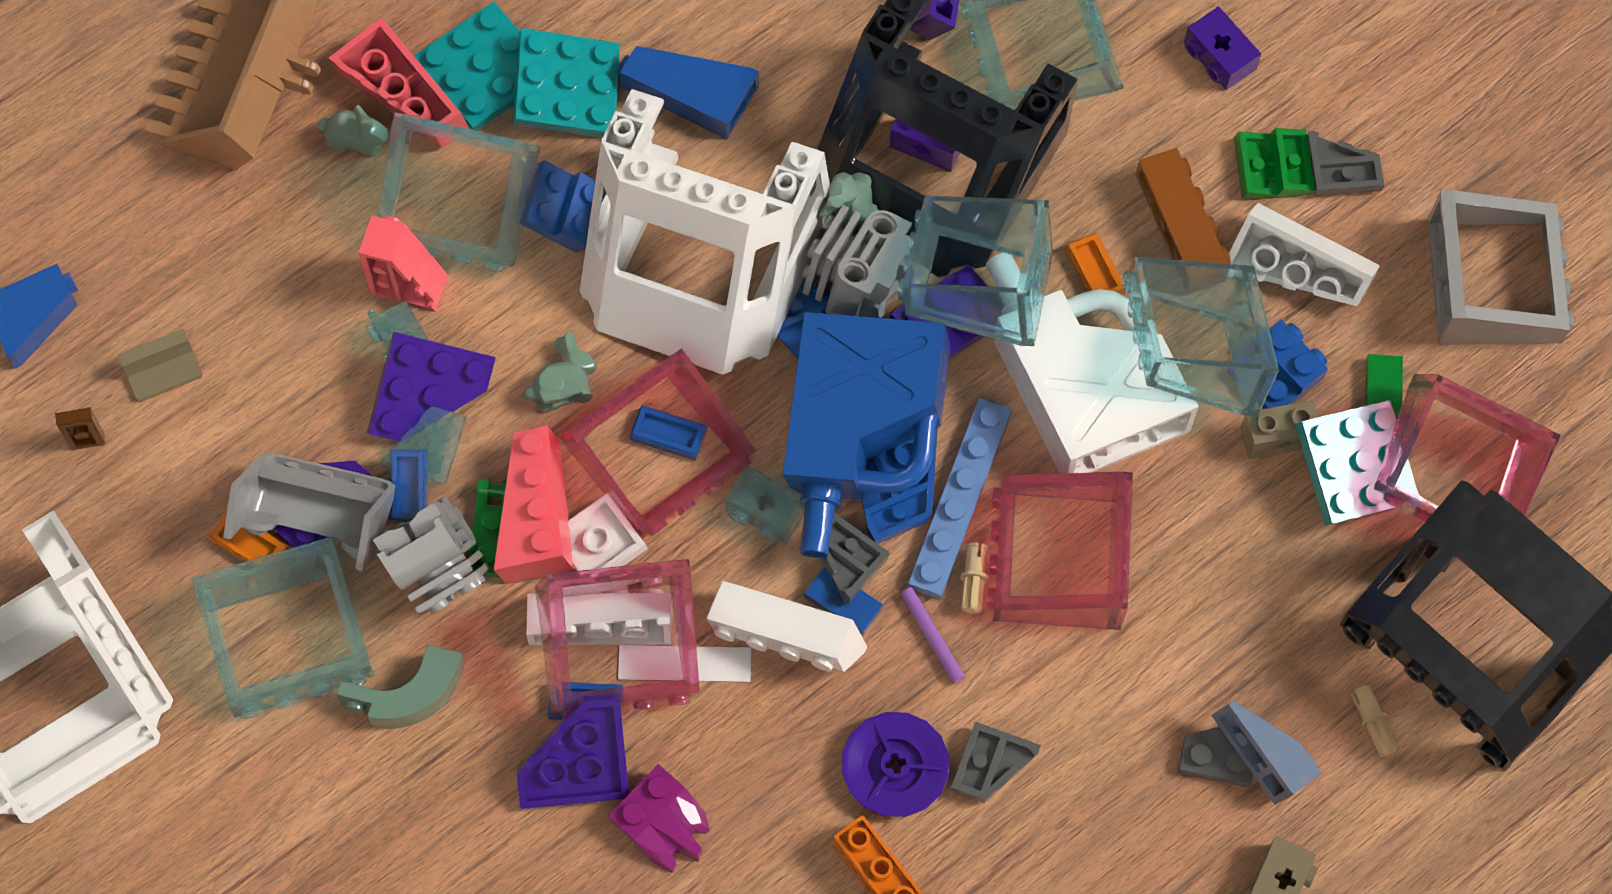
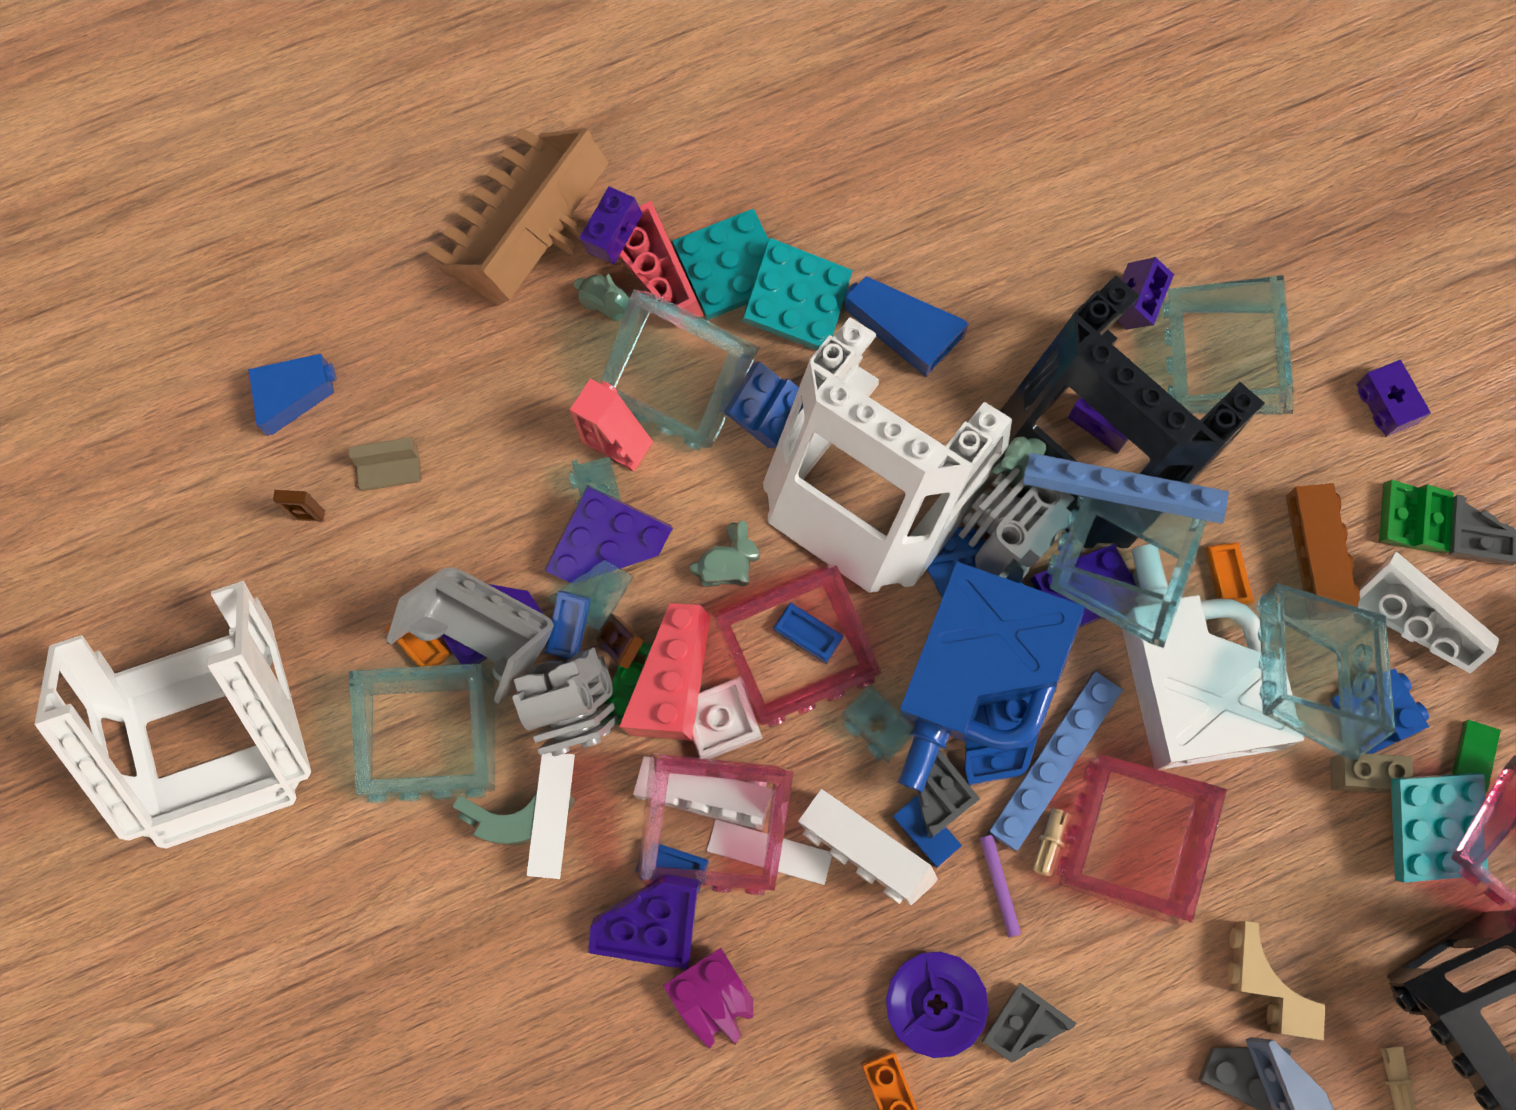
camera: 20 degrees right, 5 degrees up
(346, 53) = (611, 225): none -> dark purple brick
(444, 676) = (550, 816): none -> white sticker
(469, 484) = (619, 641): none -> reddish brown plate
(958, 197) = (1126, 488): none -> medium blue plate
(1254, 681) = (1252, 974): none -> tan arch

